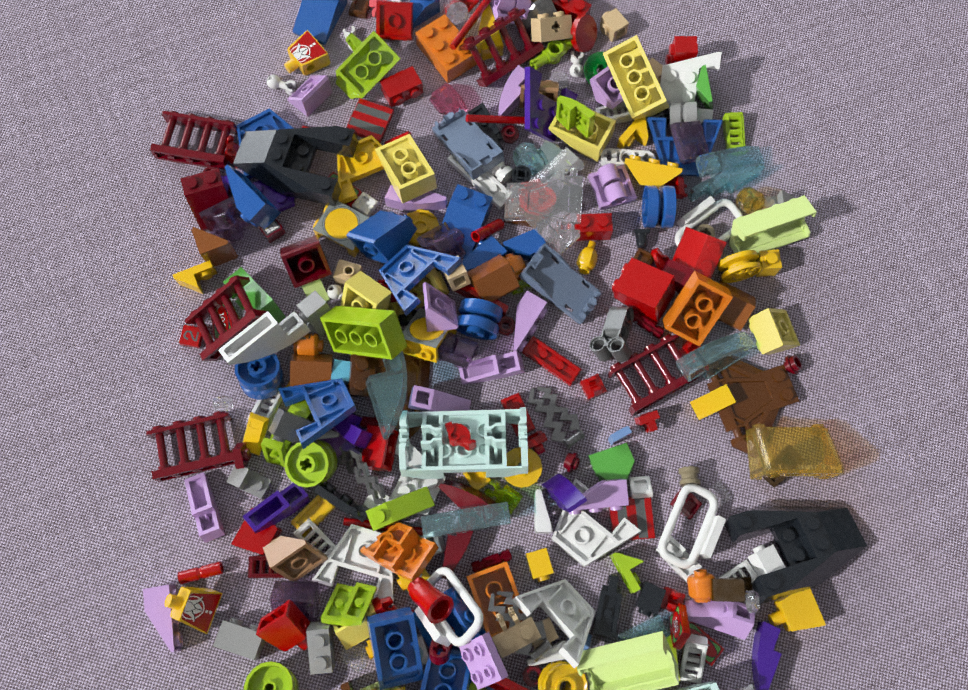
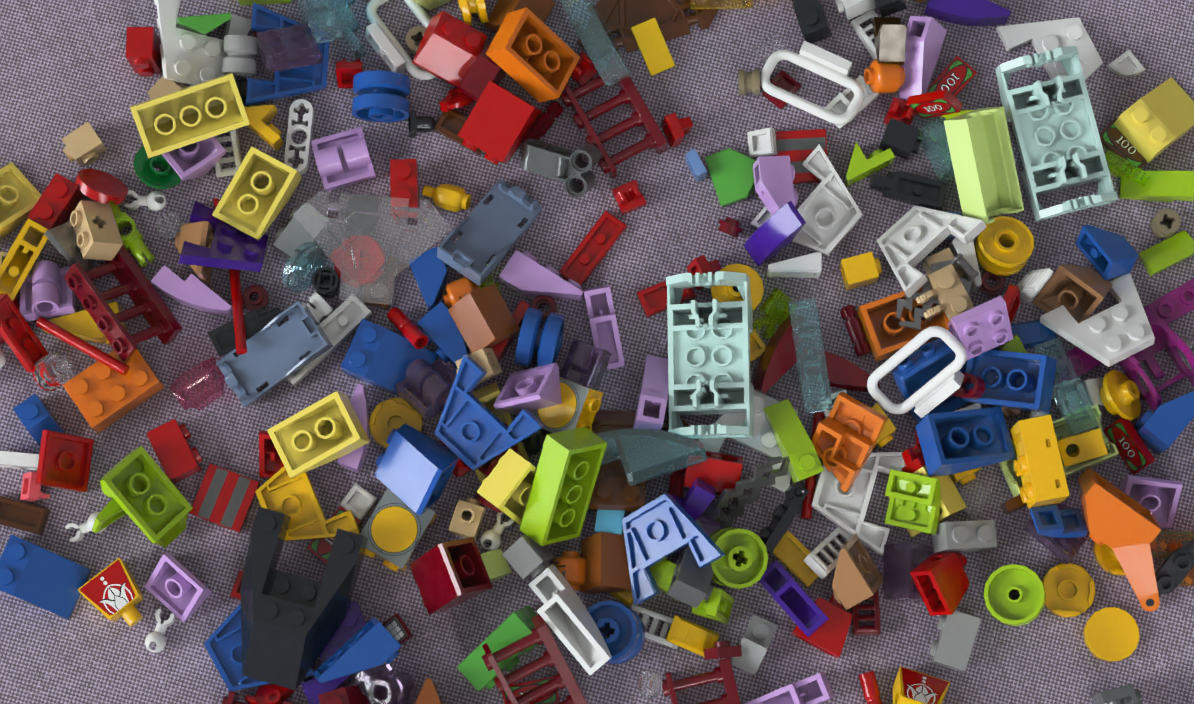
camera: 85 degrees left, 5 degrees up
(431, 601) = (910, 394): red plant -> none
(460, 435) = (704, 360): red piece -> none
(550, 410) = (661, 253): flat silver piece -> none
(575, 114) = (256, 189): lime slope -> none
(652, 171) = (327, 102): yellow slope -> none
(698, 645) = (955, 85): white slope -> none
(752, 601) = (905, 16): clear tile -> none

